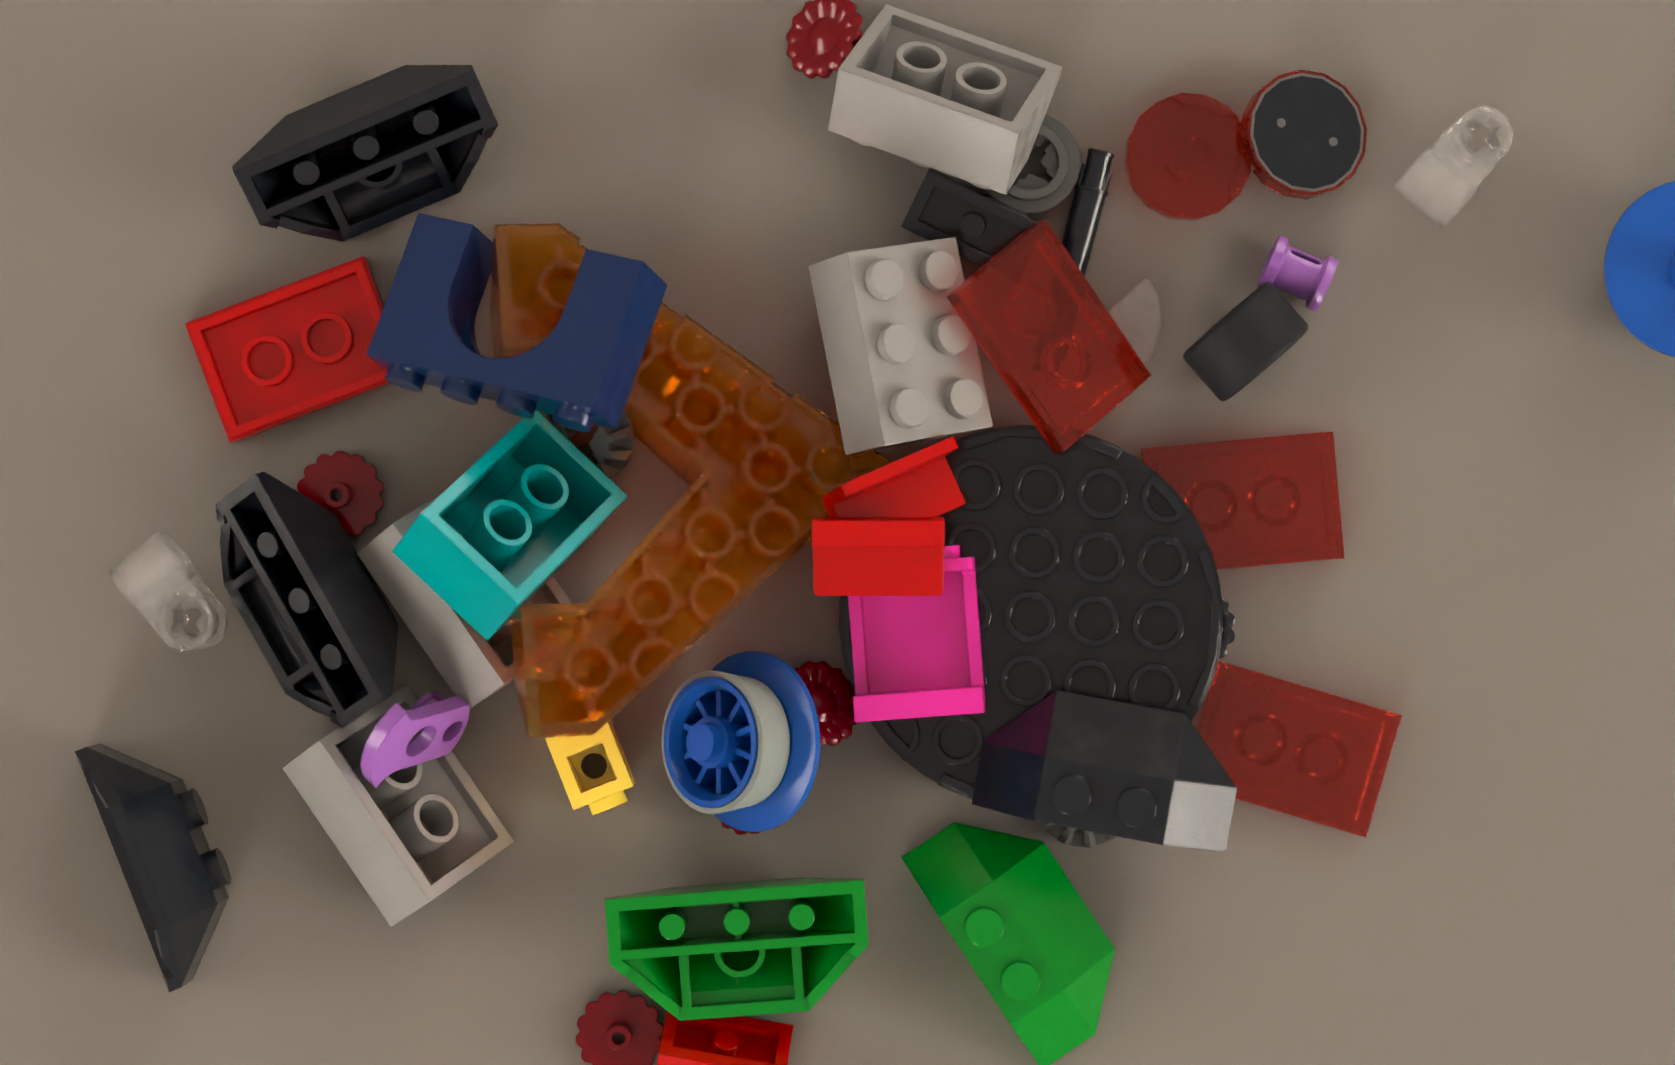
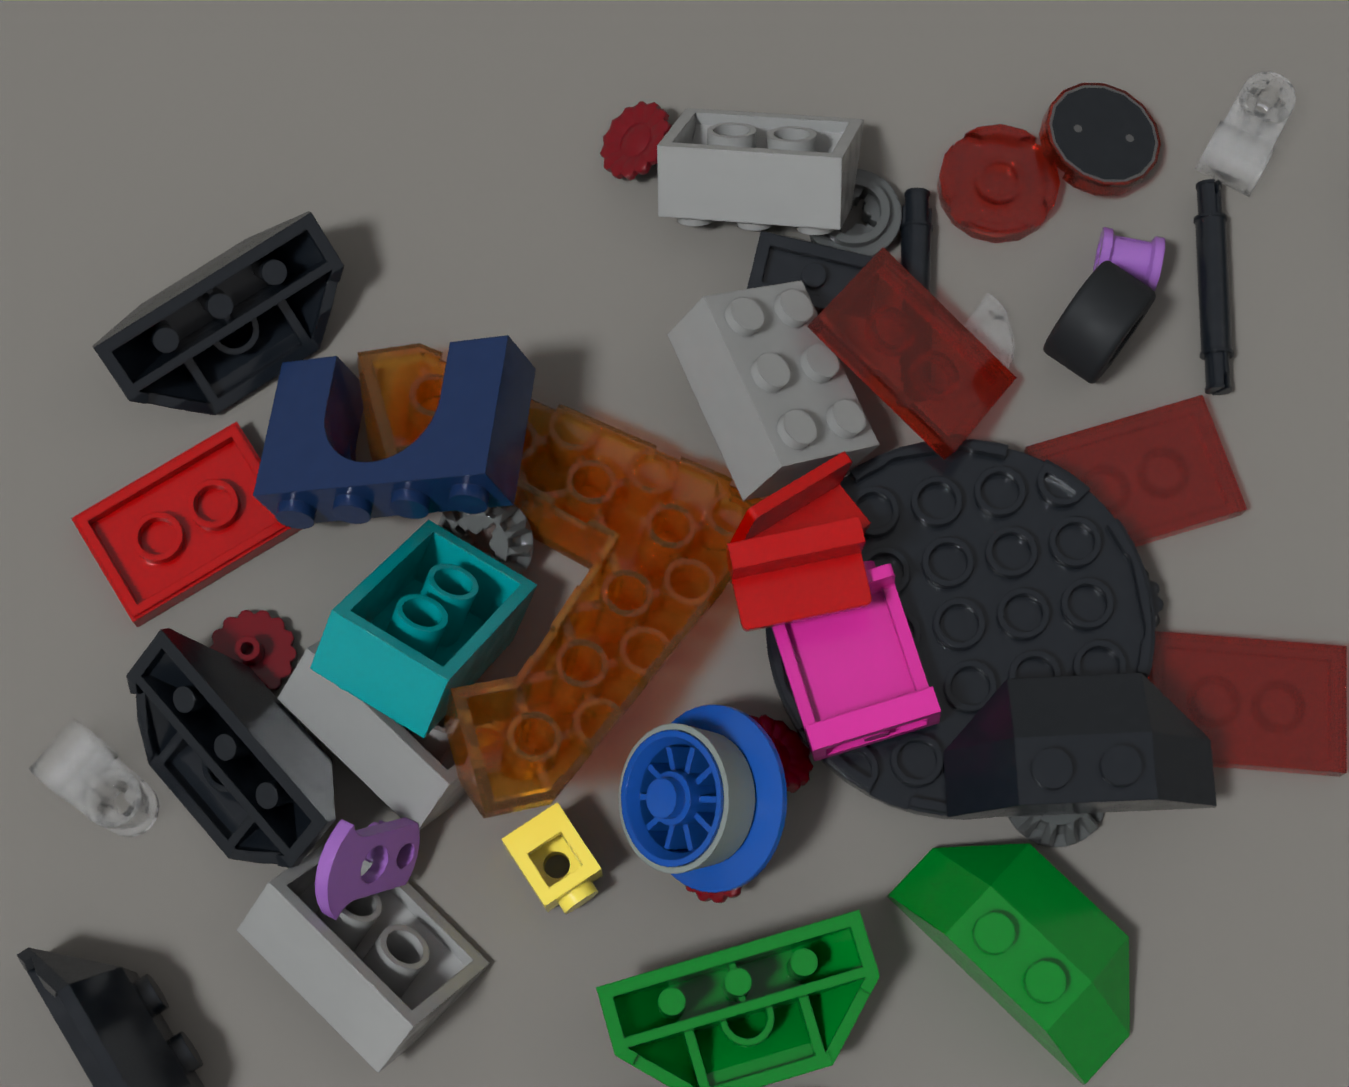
camera: 10 degrees left, 15 degrees down
(1377, 316) = (1213, 287): none -> black piece

